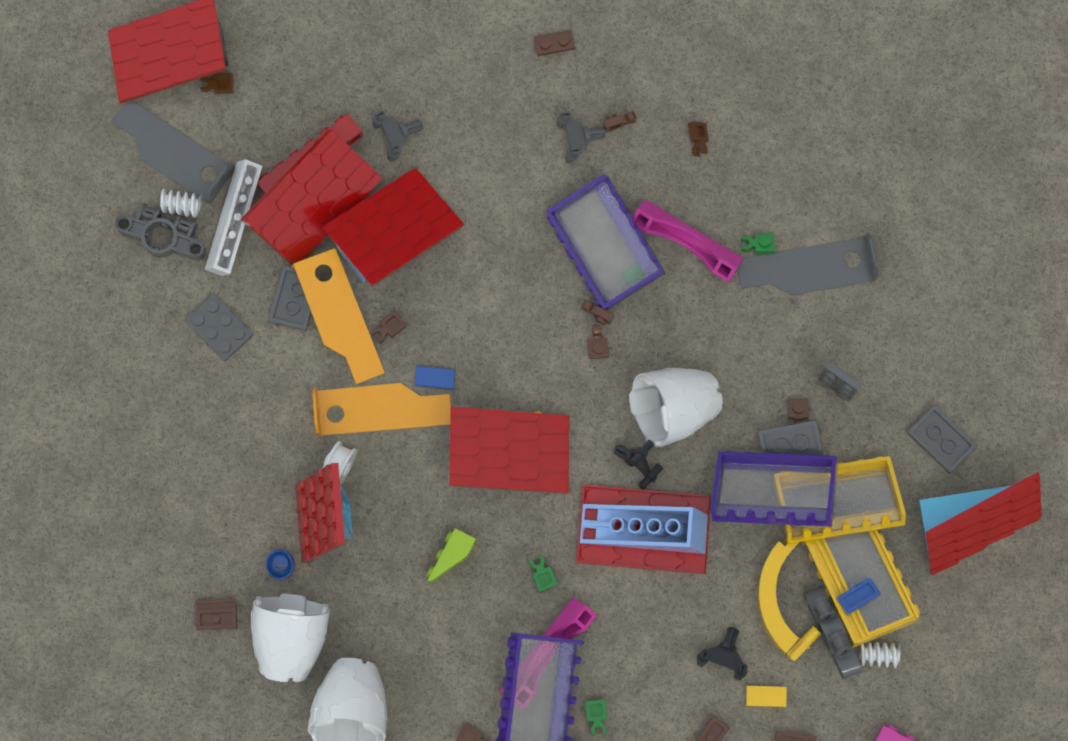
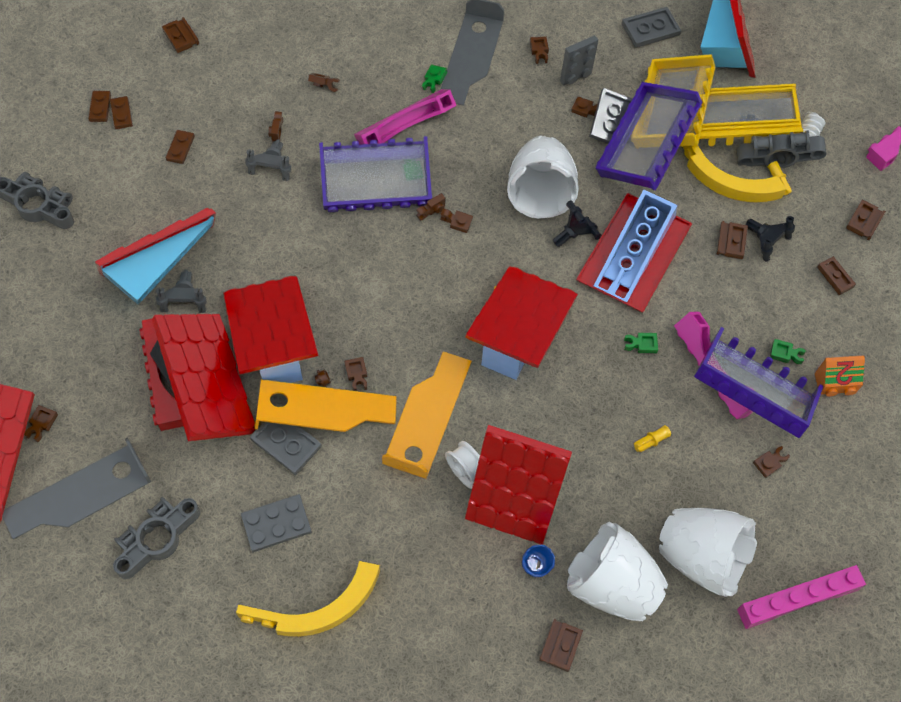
camera: 70 degrees left, 15 degrees down
(179, 423) = (324, 618): none -> yellow arch
(180, 204) = (135, 504): white piece -> none
(230, 226) = (179, 460): white brick -> none
(368, 297) = (322, 378): none -> reddish brown plate
(398, 85) = (150, 259): none -> medium azure piece
(435, 377) = (422, 356): blue tile -> none
(445, 620) = (652, 439): none -> yellow axle
(455, 552) = (592, 403): lime slope -> none
(703, 620) = (732, 240): none -> reddish brown plate
(766, 696) = (813, 223): yellow tile -> none
(853, 333) = (540, 48): none -> reddish brown plate
(858, 596) = (763, 115): blue tile -> none

